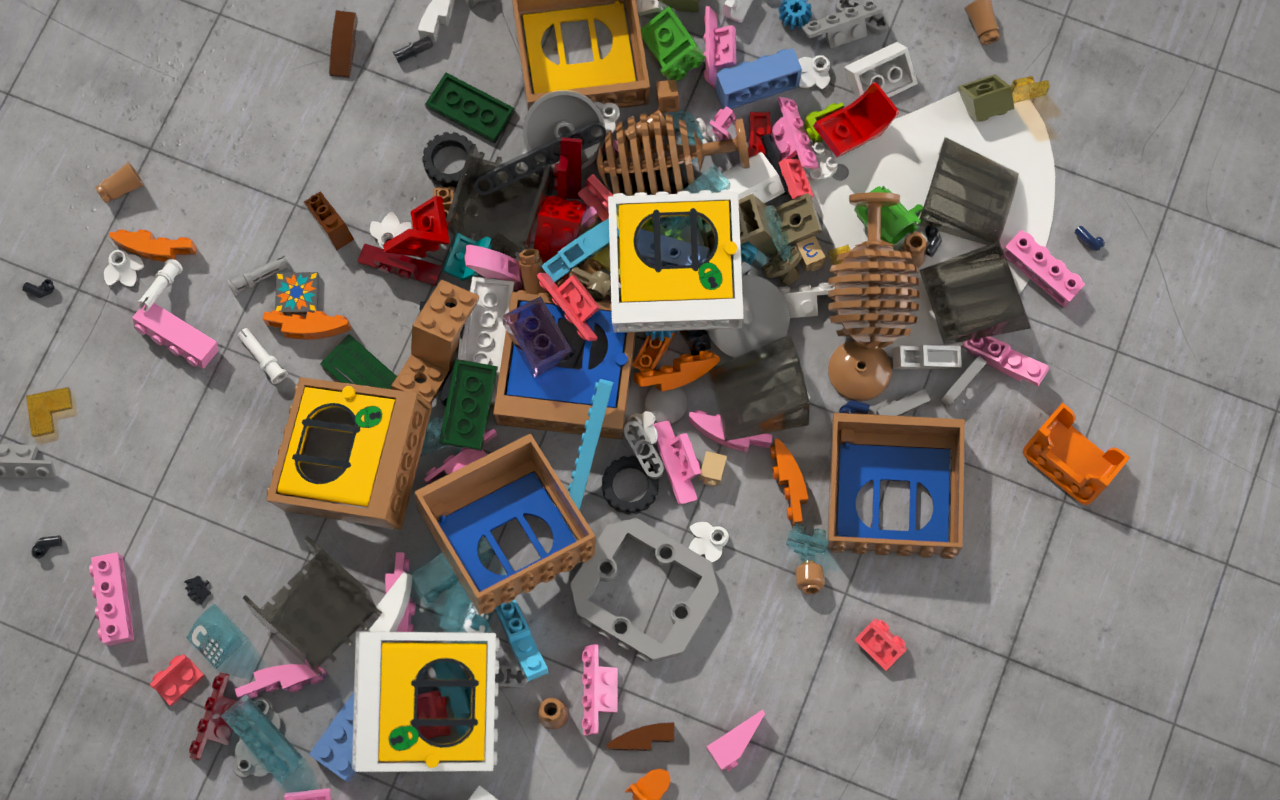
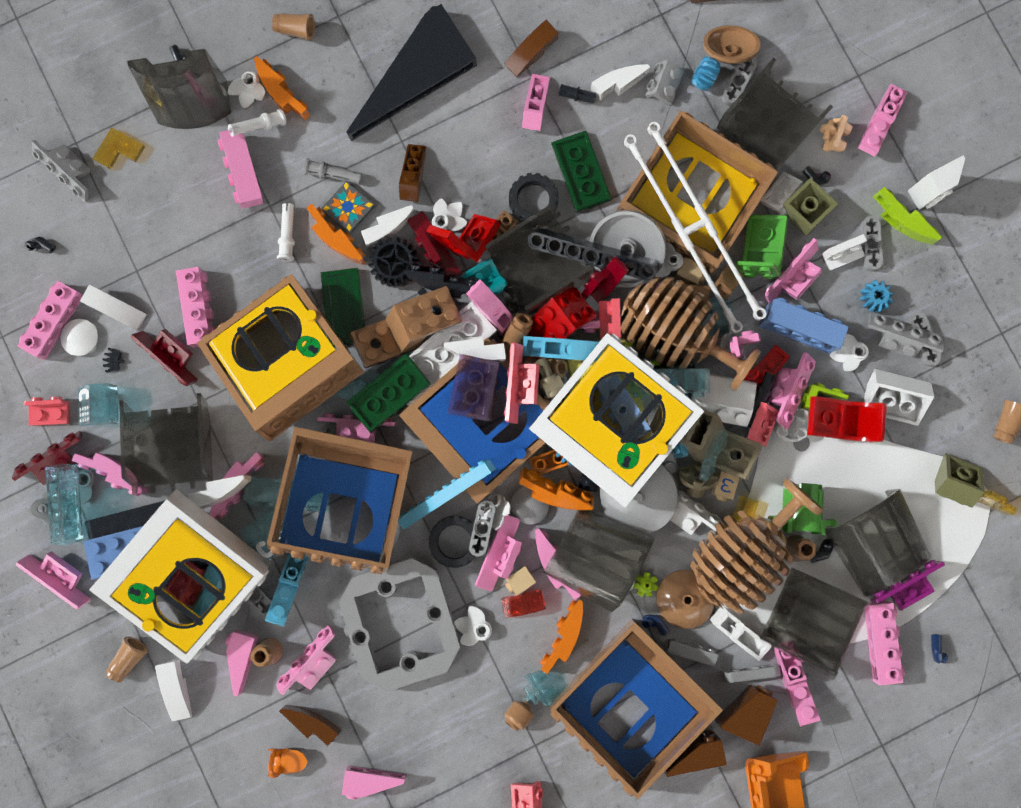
camera: 45 degrees right, 10 degrees up
(72, 308) = (184, 91): none -> clear smoke windscreen
(150, 593) = (79, 337): none -> white dish
(160, 541) = (113, 307): none -> white slope
(233, 479) = (195, 304): none -> bright pink brick
(244, 536) = (169, 353): none -> dark red bracket
(262, 125) = (425, 63): none -> black slope
(327, 709) = (120, 521): none -> black beam
(345, 280) = (388, 226): none -> white slope
(359, 313) = (395, 246): none -> black gear
(384, 83) = (535, 102): none -> bright pink slope
(424, 282) = (435, 277): none -> black slope
(510, 302) = (476, 348): none -> white slope
(529, 733) = (238, 654): none -> bright pink slope
(607, 60) = (684, 232): none -> white bar
(631, 108) = (690, 272): none -> tan brick
(732, 485) = (523, 604): none -> clear red slope
(818, 386) = (642, 581): none -> lime plant
(982, 470) = (701, 754): none -> reddish brown slope
(991, 412) = (749, 714): none -> reddish brown slope
(1026, 210) = (911, 588): none -> magenta bracket

